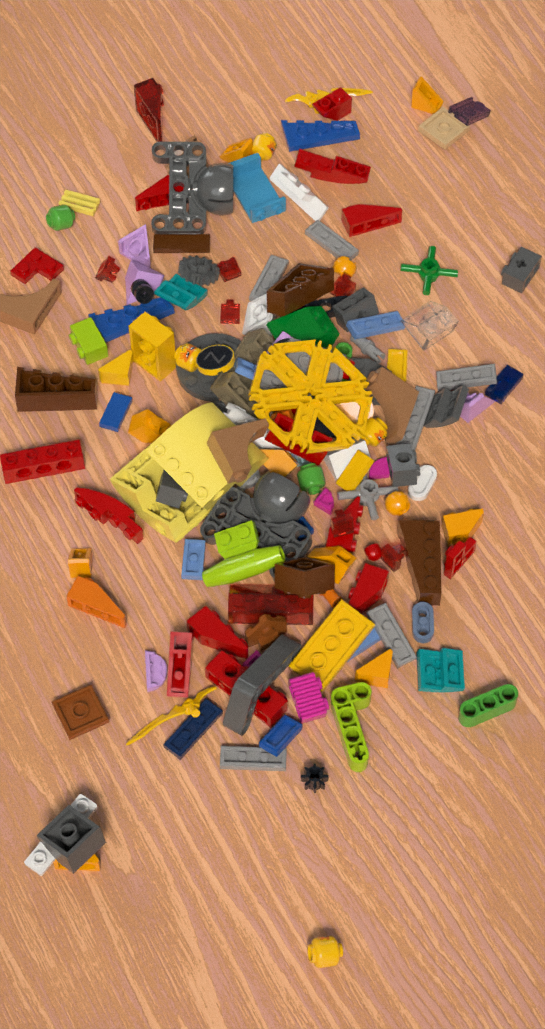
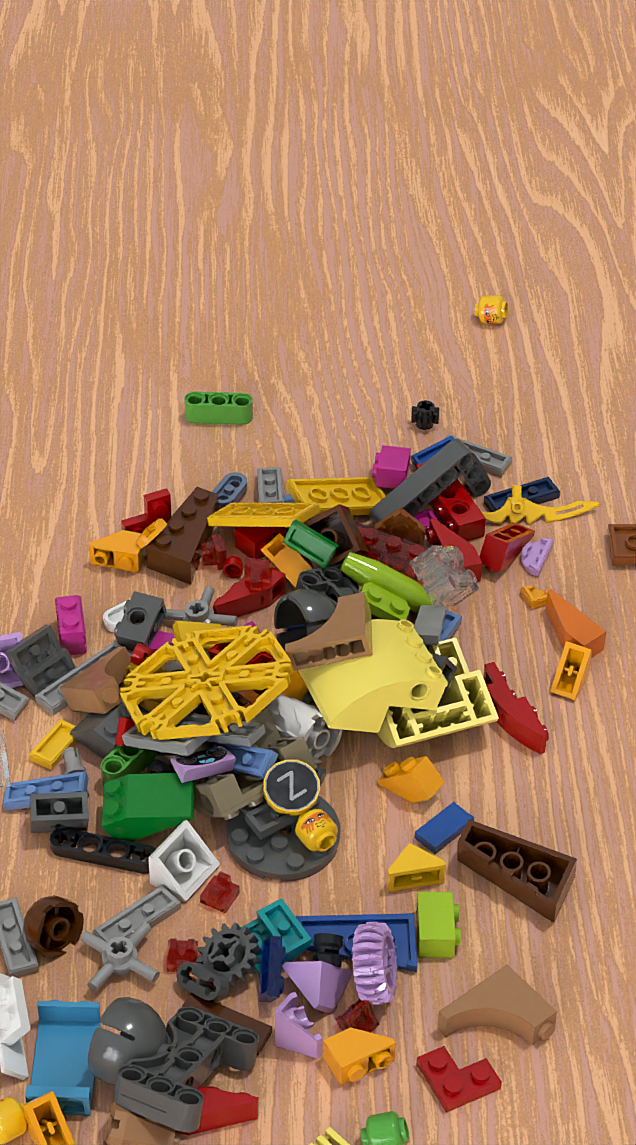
camera: 155 degrees left, 15 degrees down
(42, 461) = (570, 792): red brick -> none
(96, 250) = (356, 1053): none -> light orange slope
(108, 284) = (374, 963): none -> lavender gear
(137, 629) = (534, 597): none -> light orange tile
(152, 346) = (359, 847): yellow brick -> none
(168, 269) = (272, 957): none -> clear blue plate
(195, 535) = (430, 623): none -> light grey tile
(205, 251) = (204, 976): none -> dark grey beam
(205, 583) = (444, 575): none -> clear brick
(261, 249) = (119, 956): none -> light grey bar
(299, 288) = (117, 849): reddish brown wedge -> none
(309, 552) = (310, 544): none -> green tile
(312, 245) = (53, 925): none -> reddish brown cylinder
(343, 286) = (47, 865): clear red tile -> none
(344, 266) = (28, 880): light orange piece -> none
(351, 729) = (358, 455): lime beam -> none
(370, 580) = (263, 514): none -> yellow tile
(376, 424) = (140, 653): none -> red hinge
(376, 671) = (306, 465): light orange slope -> none
(397, 503) = (174, 595): light orange piece -> none
(440, 670) = (240, 453): teal slope -> none
(443, 530) = (150, 532): none -> light orange tile
(449, 446) = (71, 624): none -> dark pink brick

